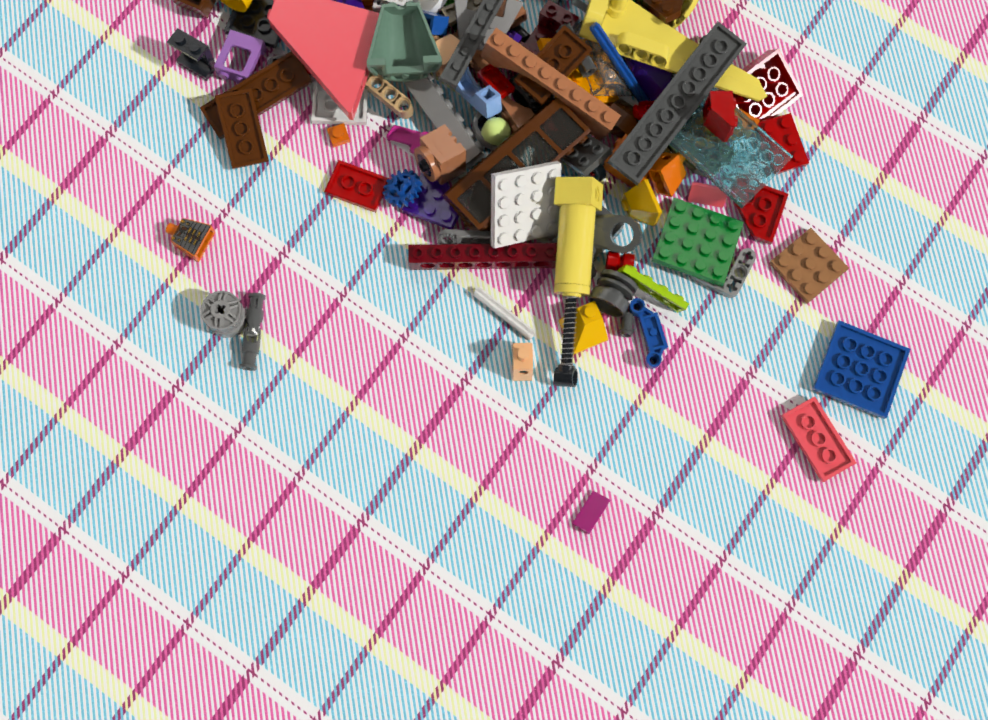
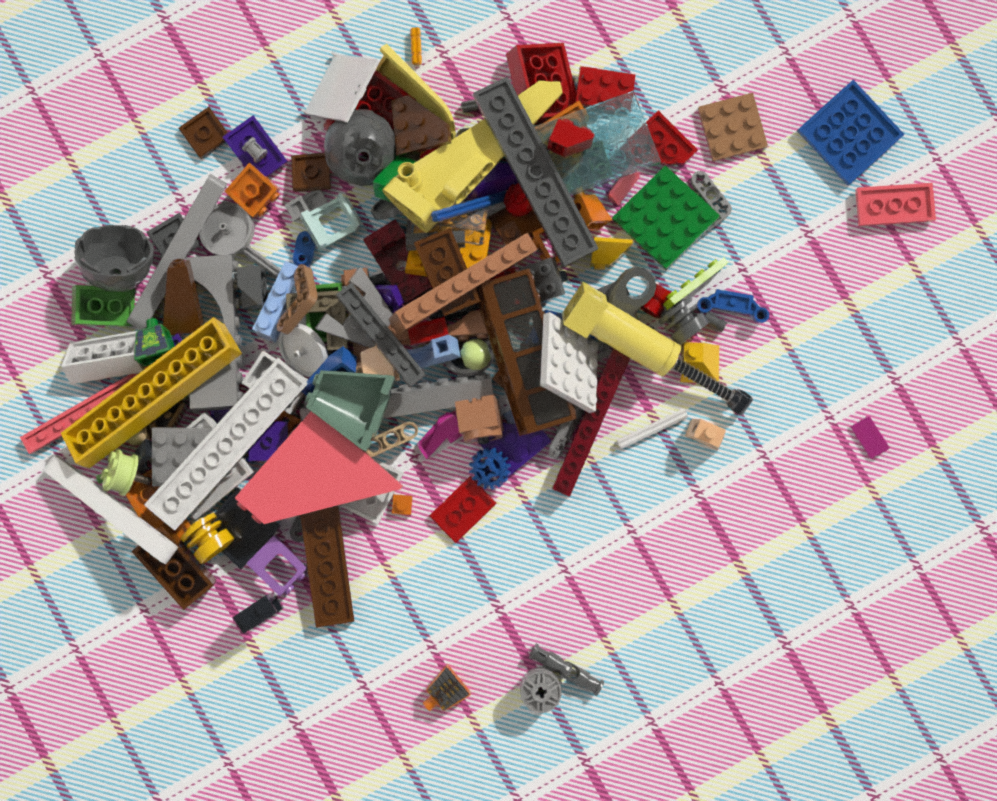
camera: 65 degrees left, 10 degrees up
(241, 128) = (358, 595): reddish brown plate -> none

